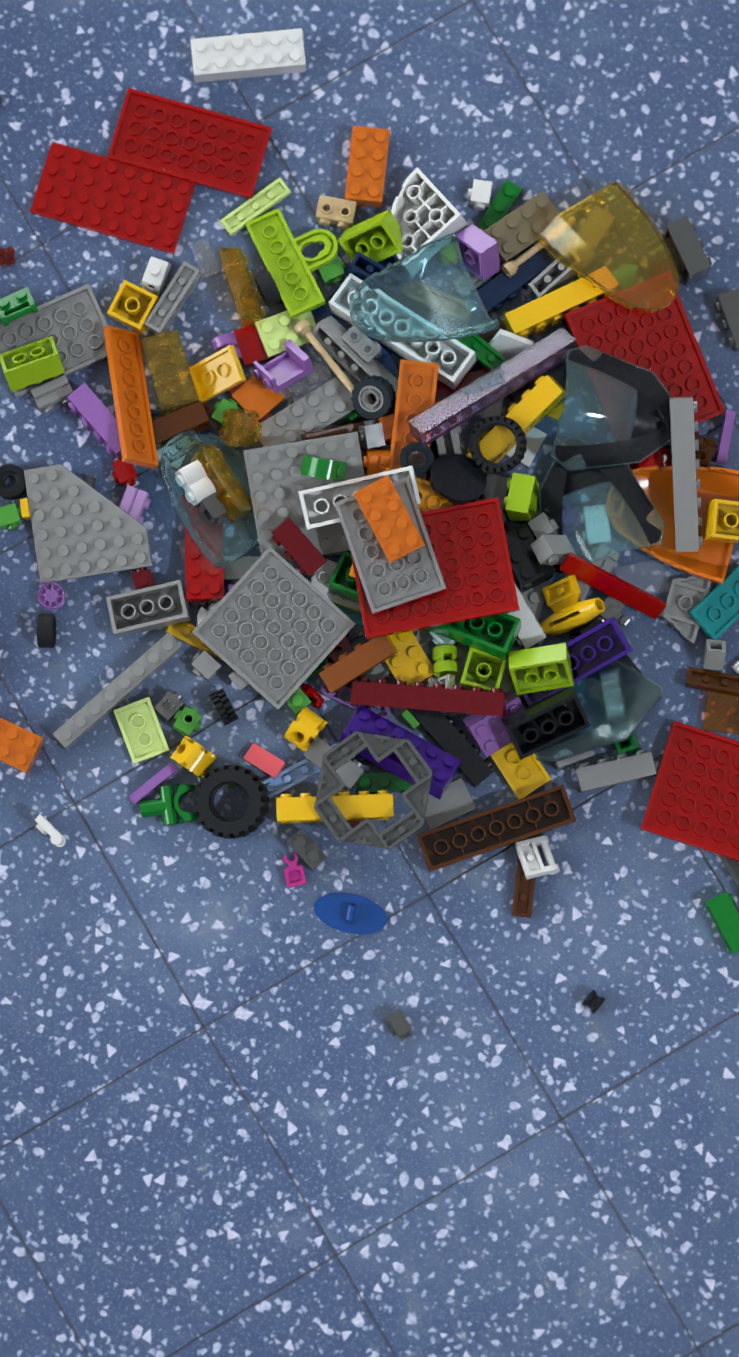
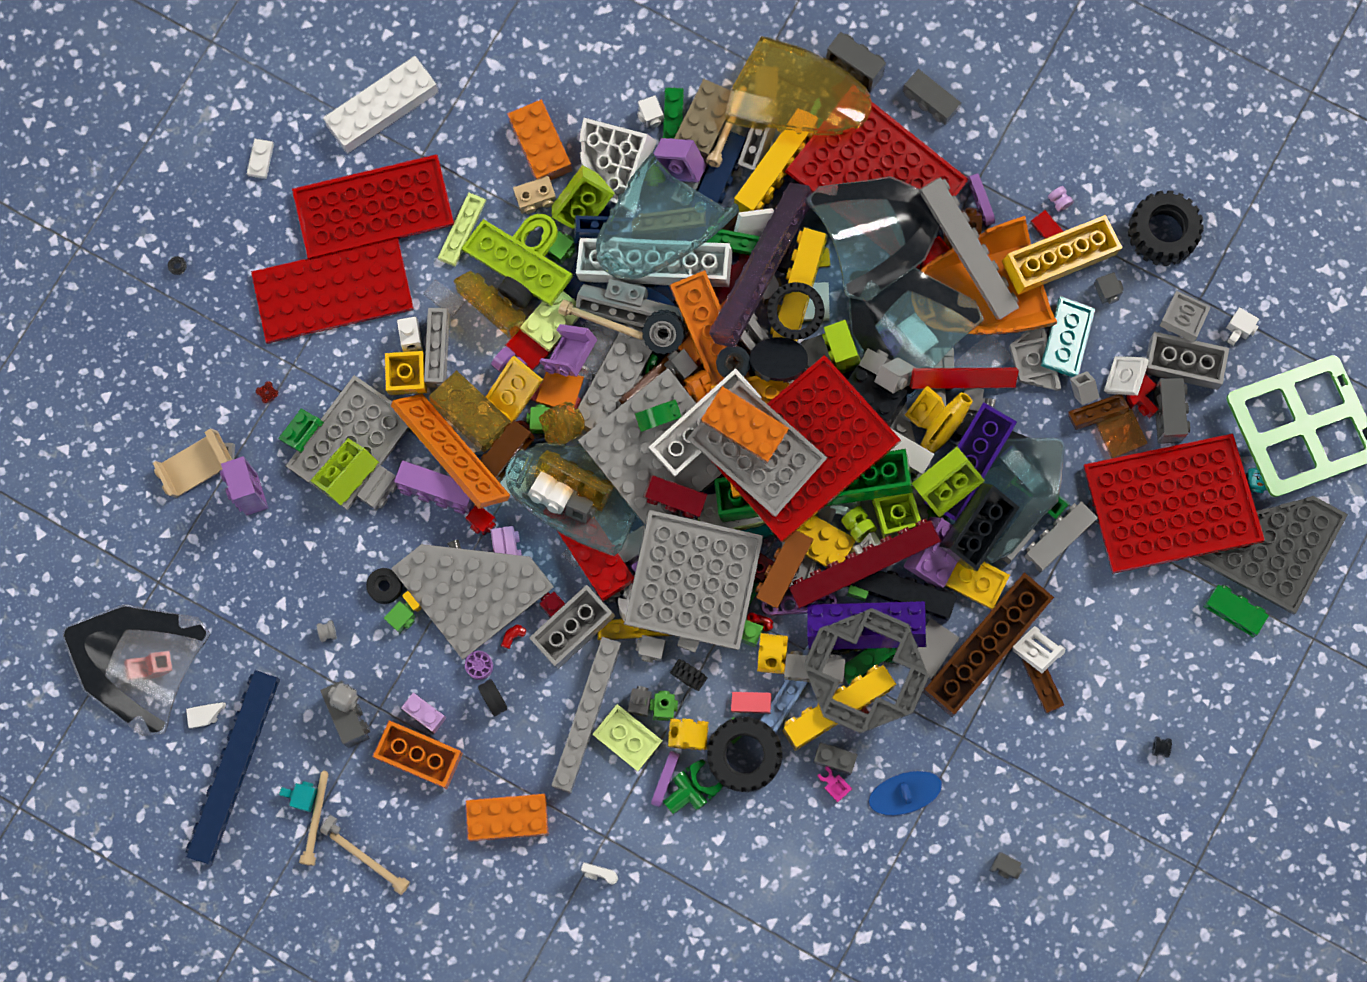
camera: 25 degrees left, 5 degrees down
(95, 584) = (512, 633): none -> red arm
(117, 45) = (260, 158): none -> white plate

